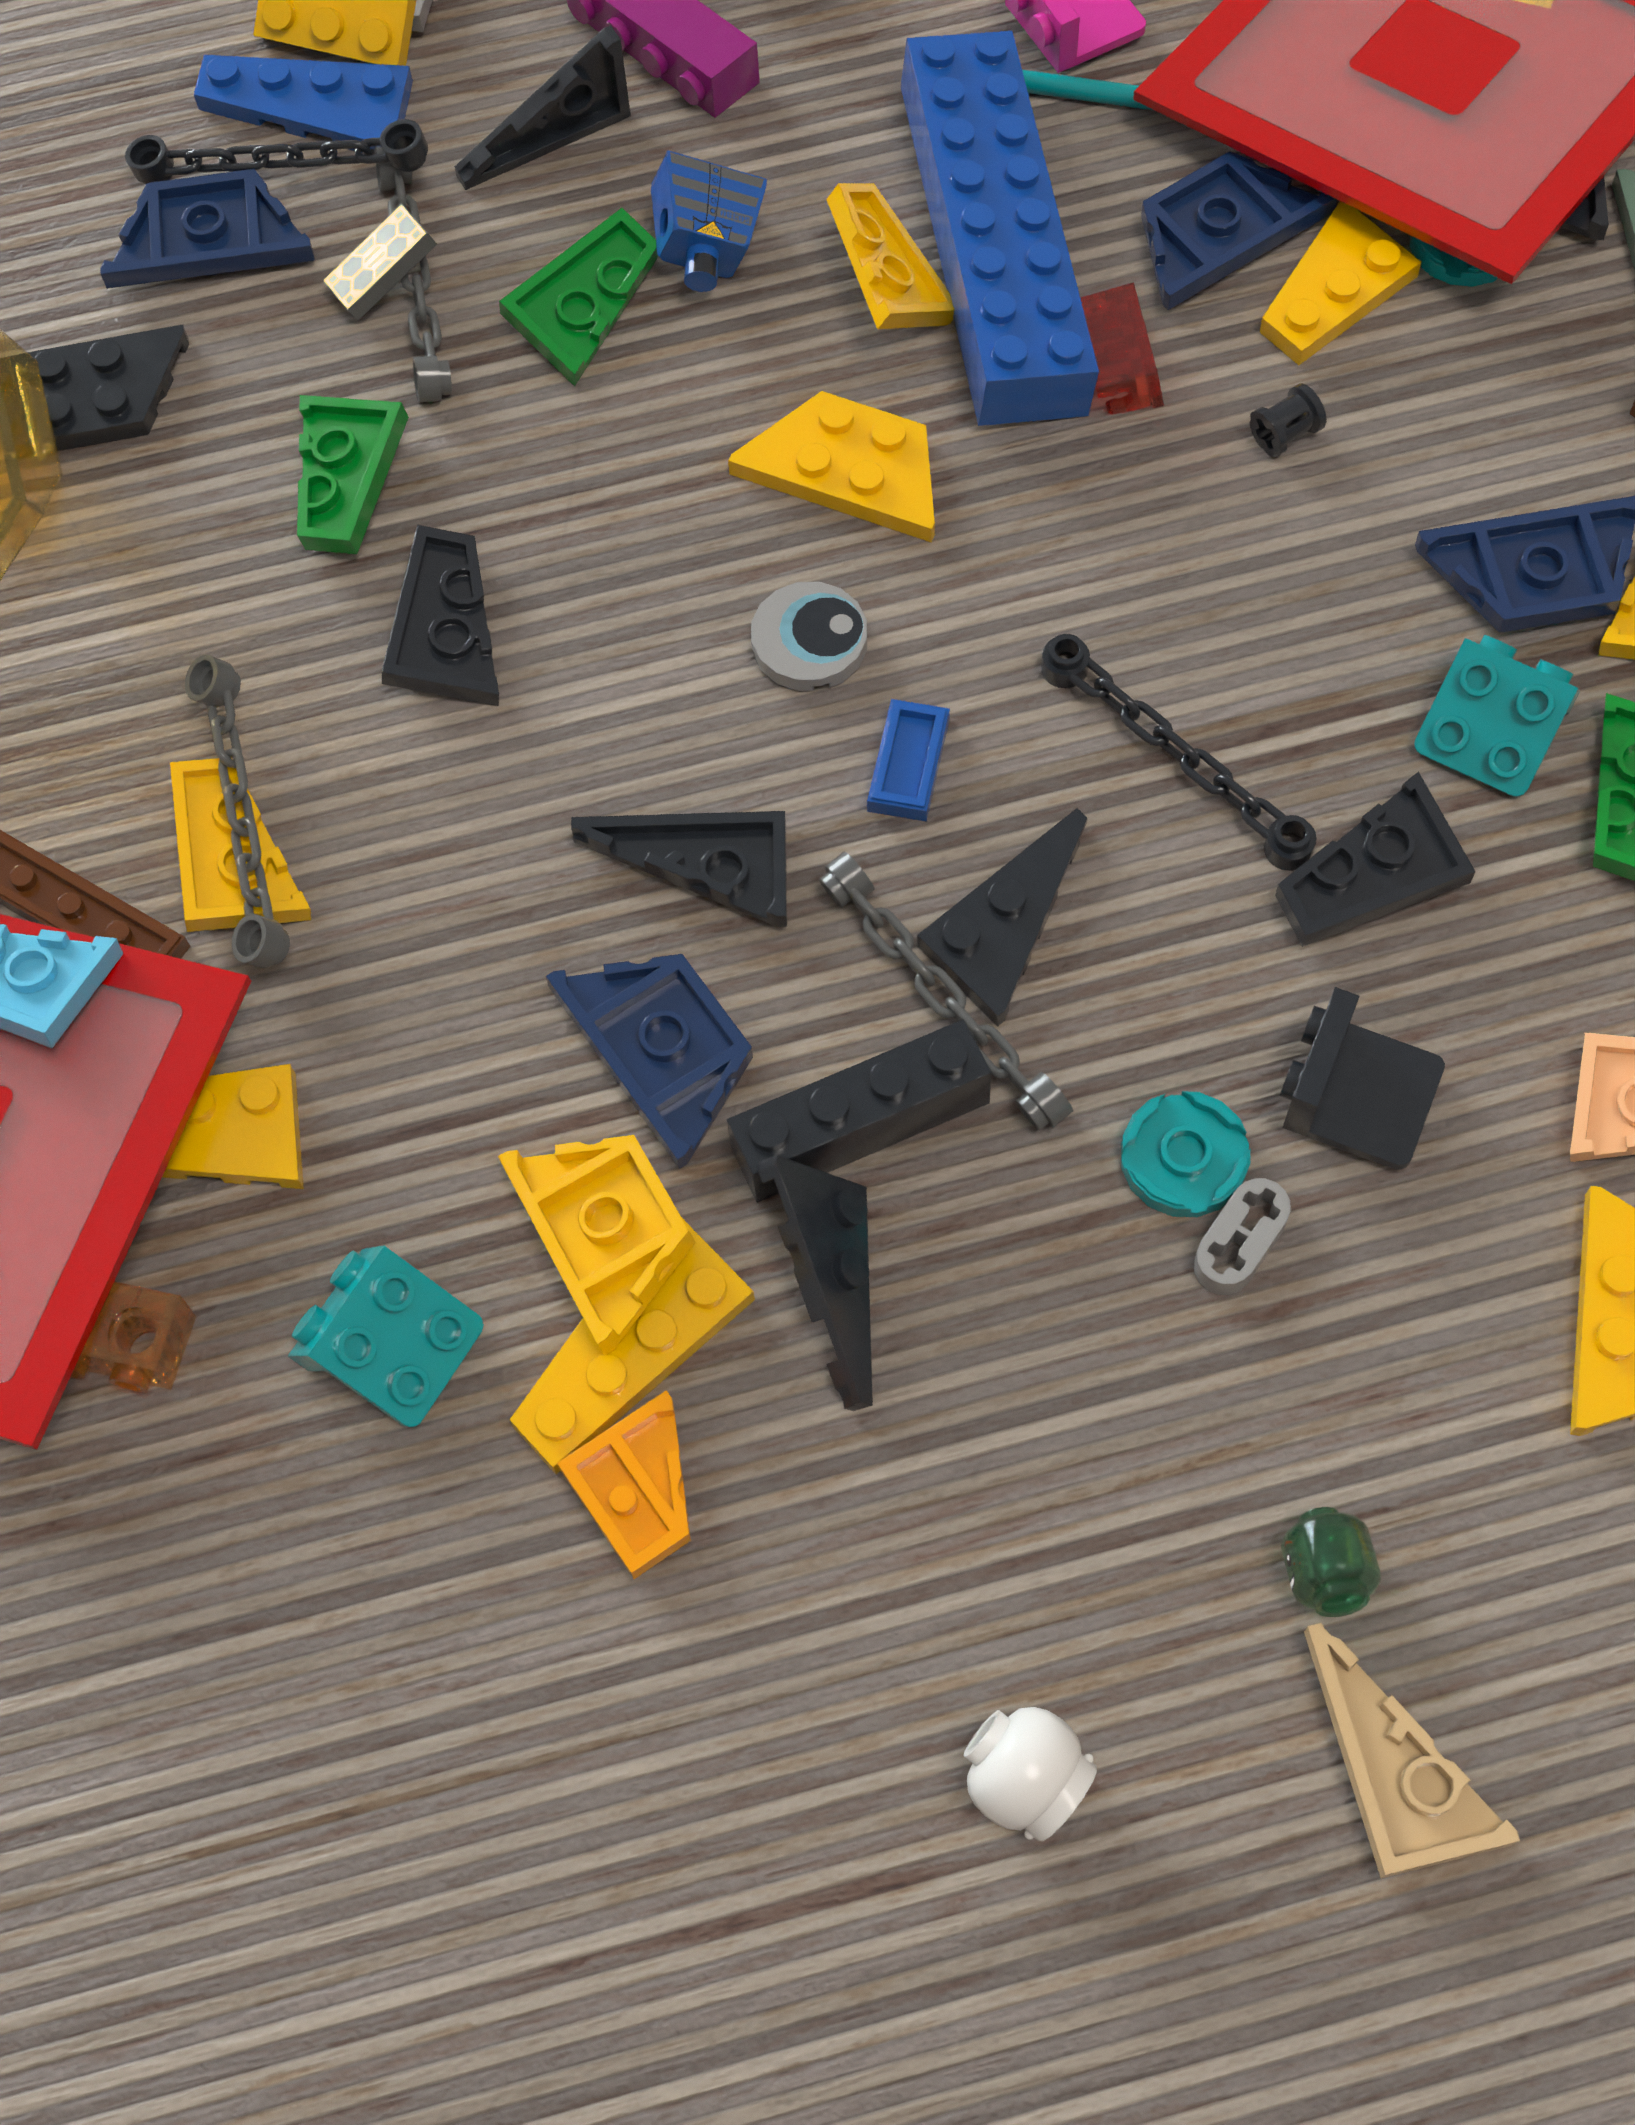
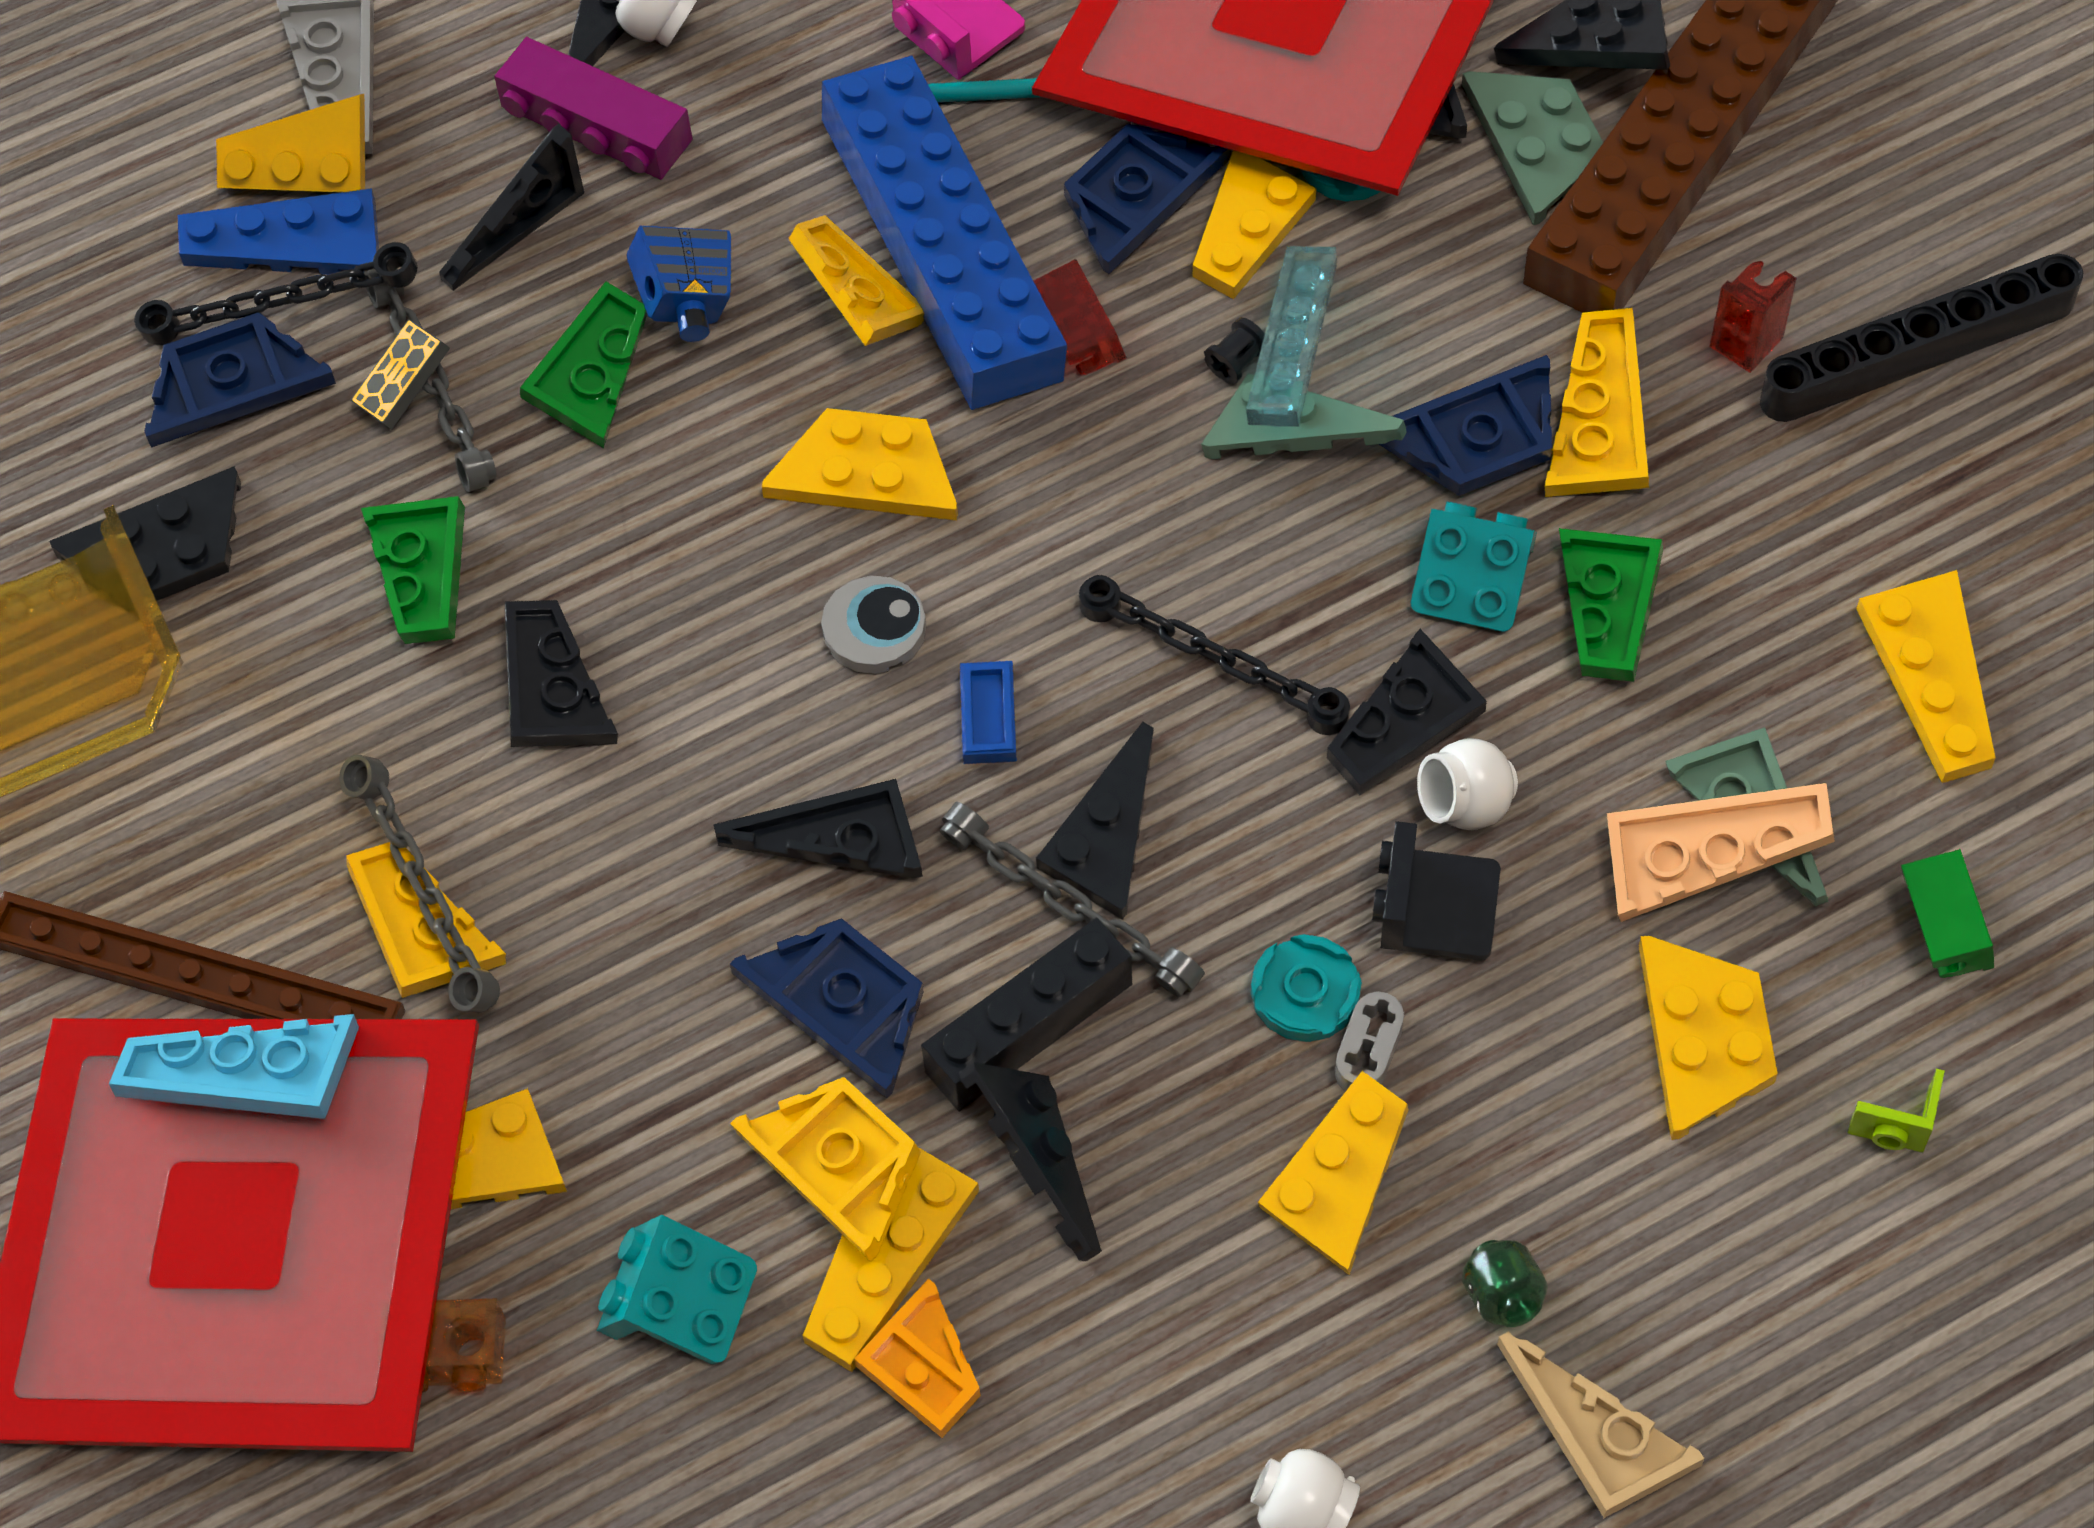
camera: 15 degrees left, 5 degrees down
(1168, 1379) = (1335, 1175): none -> yellow wing
(1327, 506) = (1320, 424): none -> sand green wing
(1352, 416) = (1292, 336): none -> clear light blue plate
(1429, 962) = (1467, 784): none -> white piece

